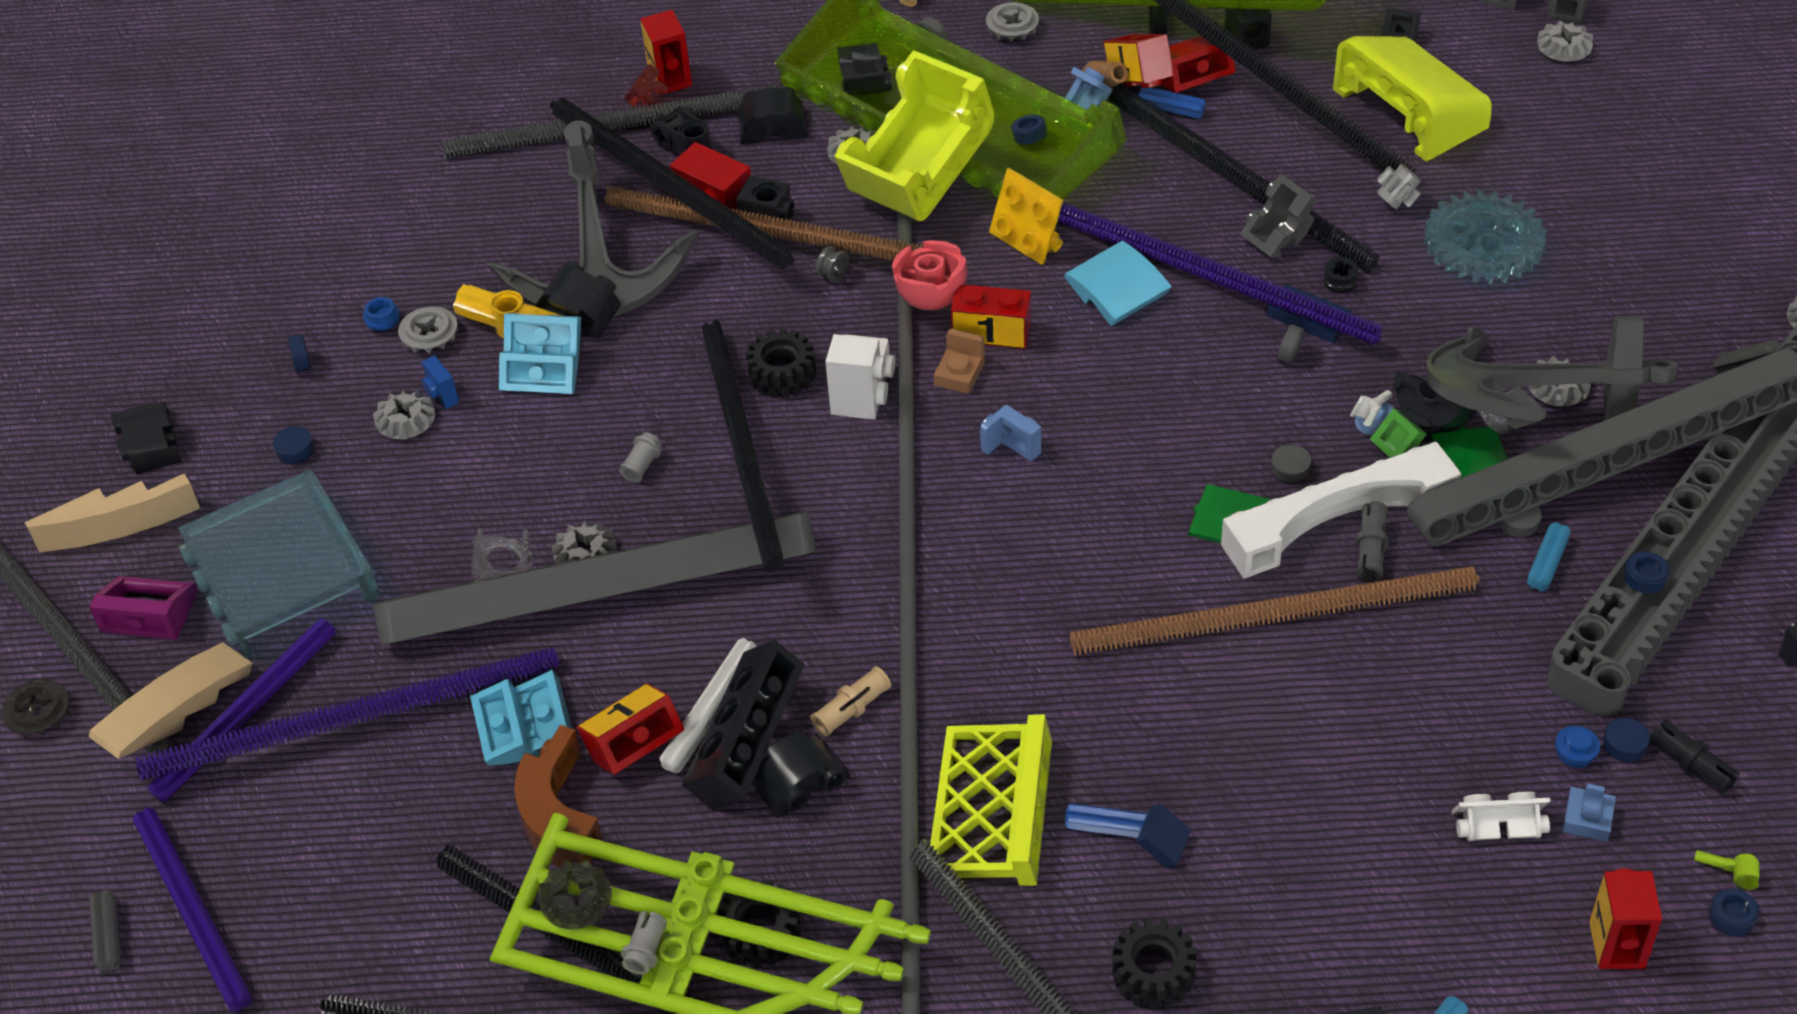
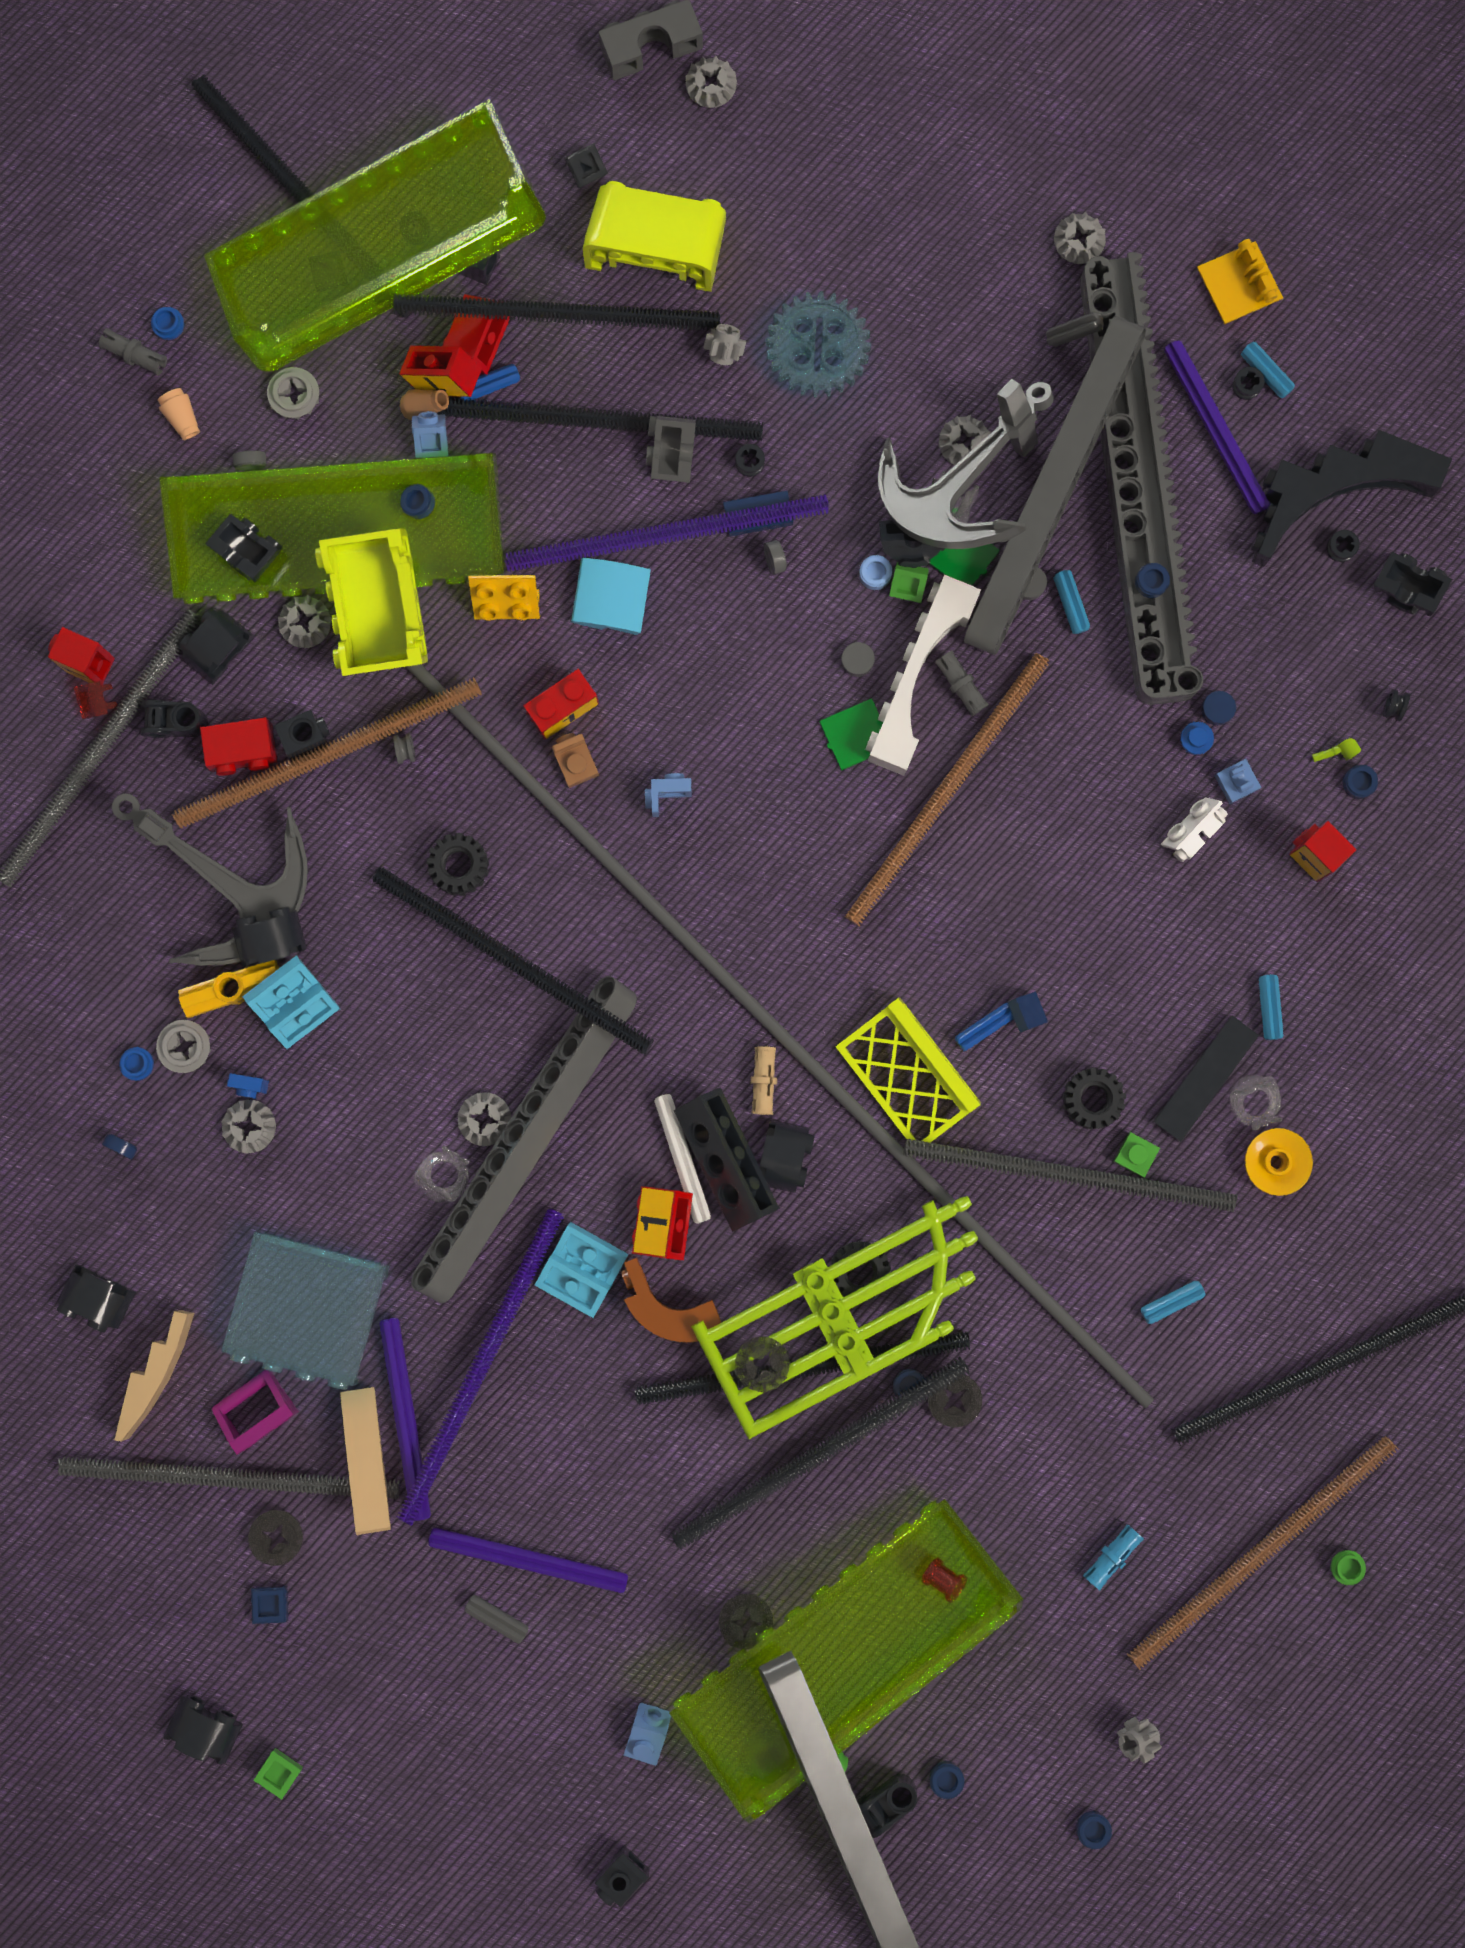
camera: 50 degrees left, 35 degrees up
(293, 444) = (201, 1215): dark blue tile -> none
(640, 953) = (832, 1356): light grey pin -> none
(644, 451) = (446, 1020): light grey pin -> none
(677, 186) = (213, 780): black axle -> none
(858, 375) = (524, 831): white brick -> none
(929, 274) = (494, 710): coral cylinder -> none
(1369, 407) = (876, 575): white hand -> none
(1694, 757) = (1265, 689): black pin -> none

